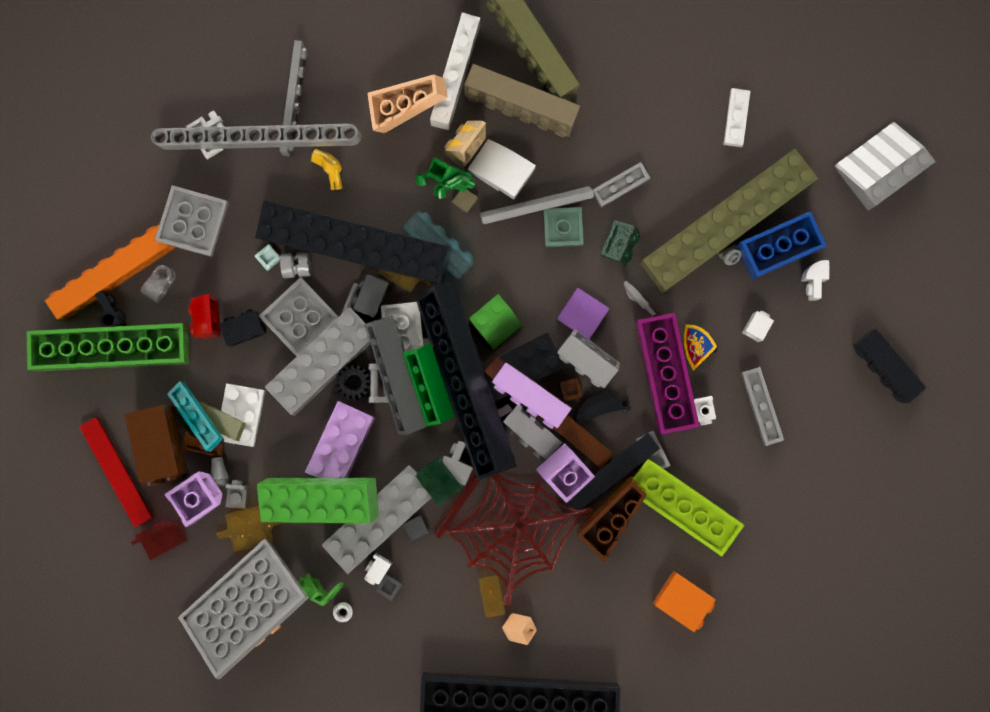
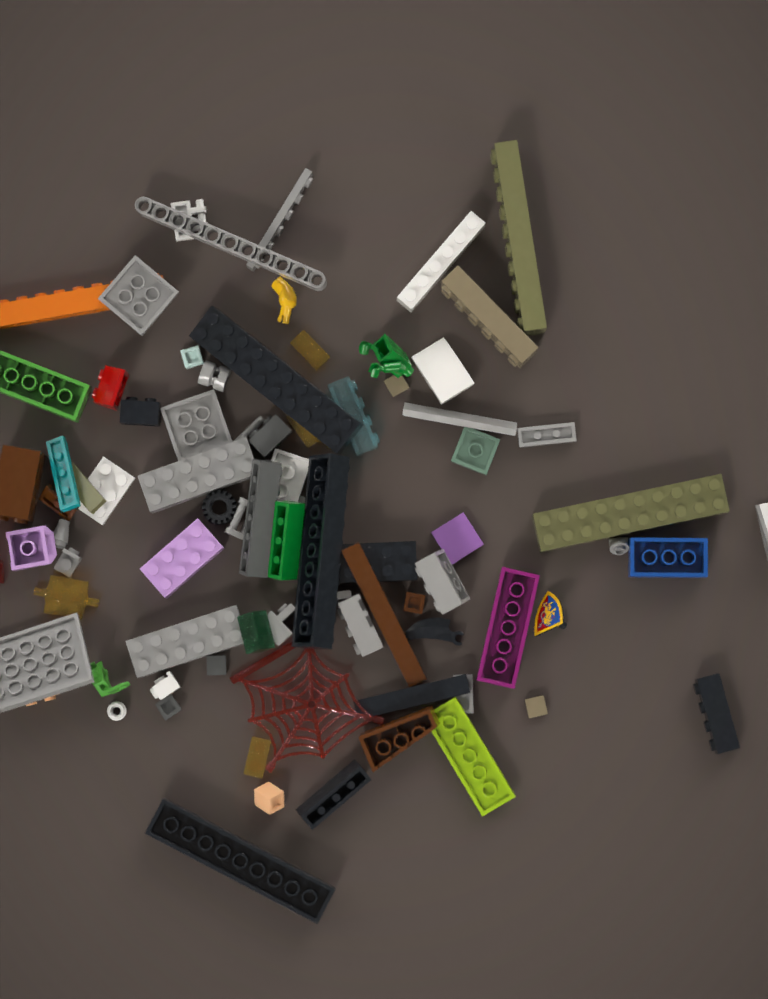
camera: 30 degrees right, 0 degrees up
(107, 301) = (29, 333): black plate -> none
(157, 285) = (80, 339): clear piece -> none
(318, 500) = (140, 599): bright green brick -> none
(372, 203) = (310, 350): none -> clear yellow plate
(403, 101) = (377, 270): light nougat wedge -> none
(466, 142) = (420, 333): tan slope -> none
(495, 321) = (373, 510): bright green slope -> none
(531, 395) = (373, 591): lavender wedge -> none
(565, 473) = (373, 676): lavender brick -> none
(577, 599) = (333, 794): none -> black brick
(621, 242) = (522, 489): clear green bracket -> none
(634, 295) = (513, 544): light grey hand -> none
(684, 602) = (429, 842): orange brick -> none
(705, 402) = (530, 669): white brick -> none
(723, 434) = (536, 706): none -> dark tan tile
(736, 117) = (684, 419): white plate -> none
(758, 326) = (613, 621): white brick -> none
(762, 406) = (583, 697): light grey plate -> none
(815, 276) = (689, 598): white brick -> none

